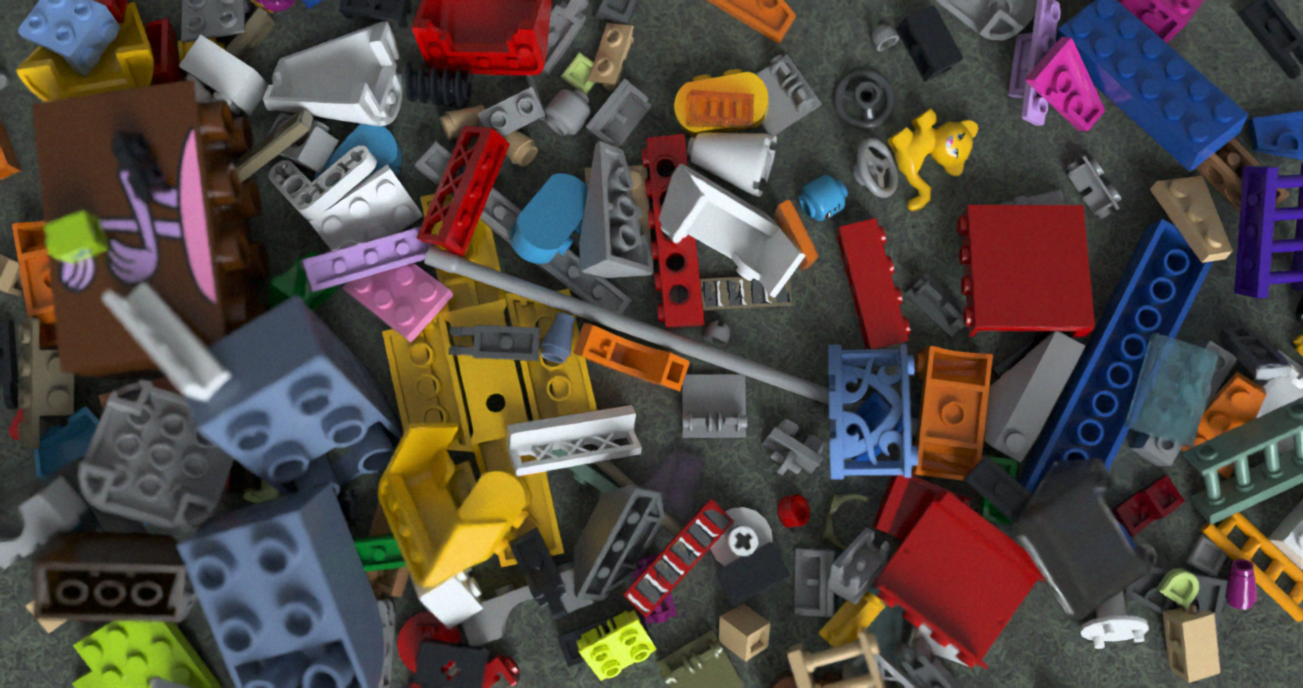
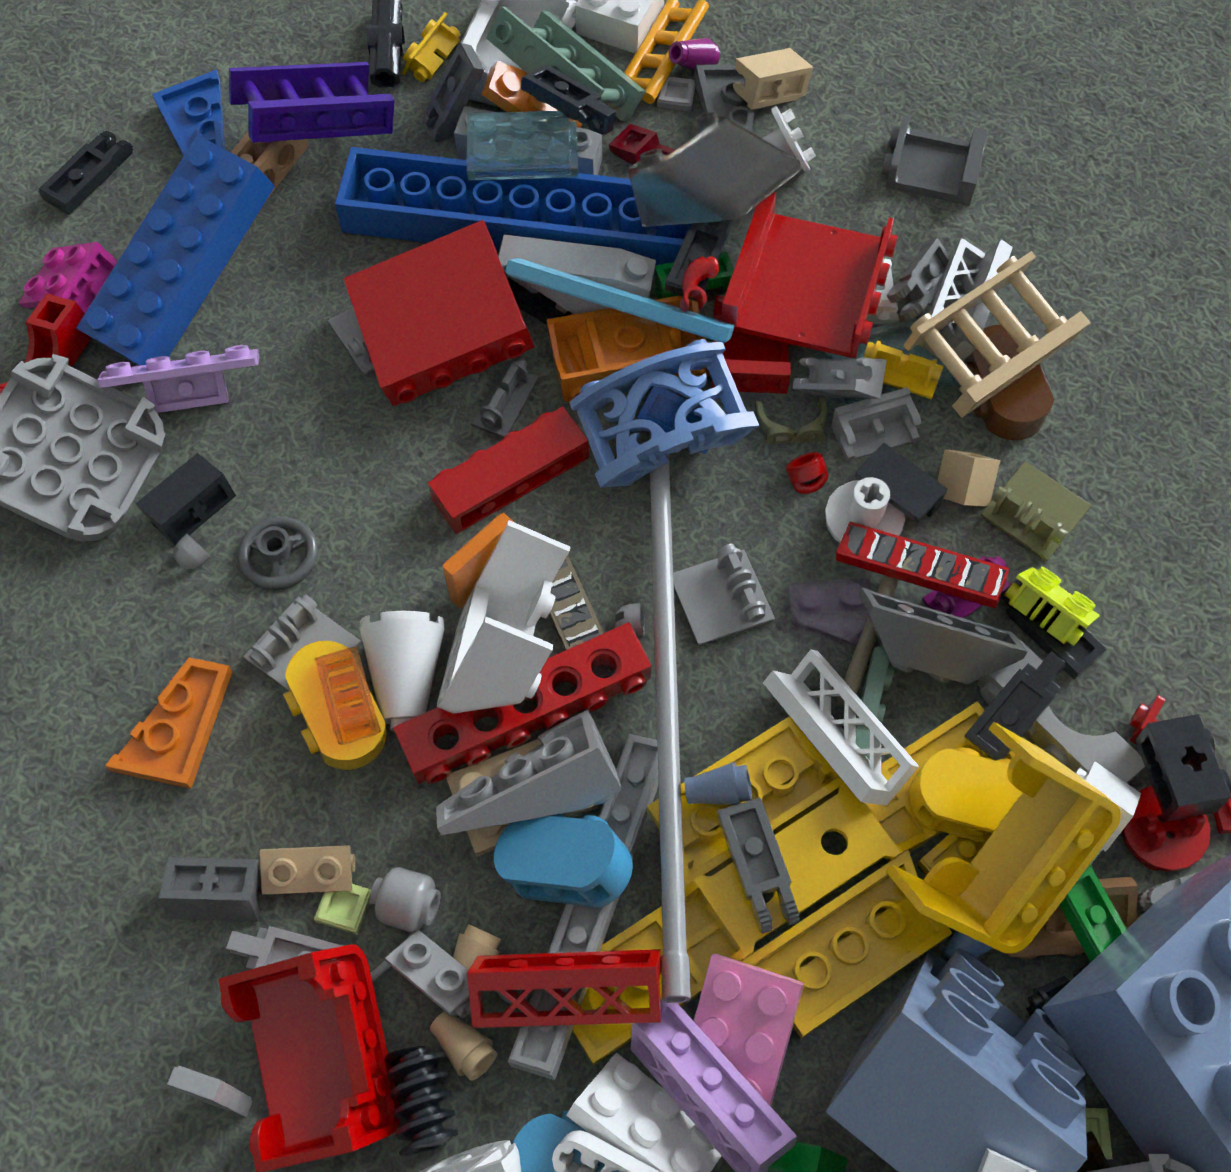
camera: 110 degrees left, 20 degrees down
(619, 115) = (389, 835): light grey hinge -> none
(631, 358) = (704, 698): orange arch -> none
(792, 453) = (743, 492): light grey hips -> none
(822, 198) = (419, 552): dark azure head -> none
(870, 170) = (365, 507): light grey piece -> none
(947, 145) = (309, 445): yellow animal -> none
(983, 480) = (697, 271): none -> red arm
(984, 413) = (619, 300): none -> medium azure tile
(1067, 85) = (201, 334): dark pink wing -> none
(1089, 175) = (302, 297): light grey hinge -> none
(1179, 586) = (721, 98): yellowish green tile -> none
(1194, 215) = (321, 179): tan wing -> none
(1200, 439) = (569, 98): none -> black hinge

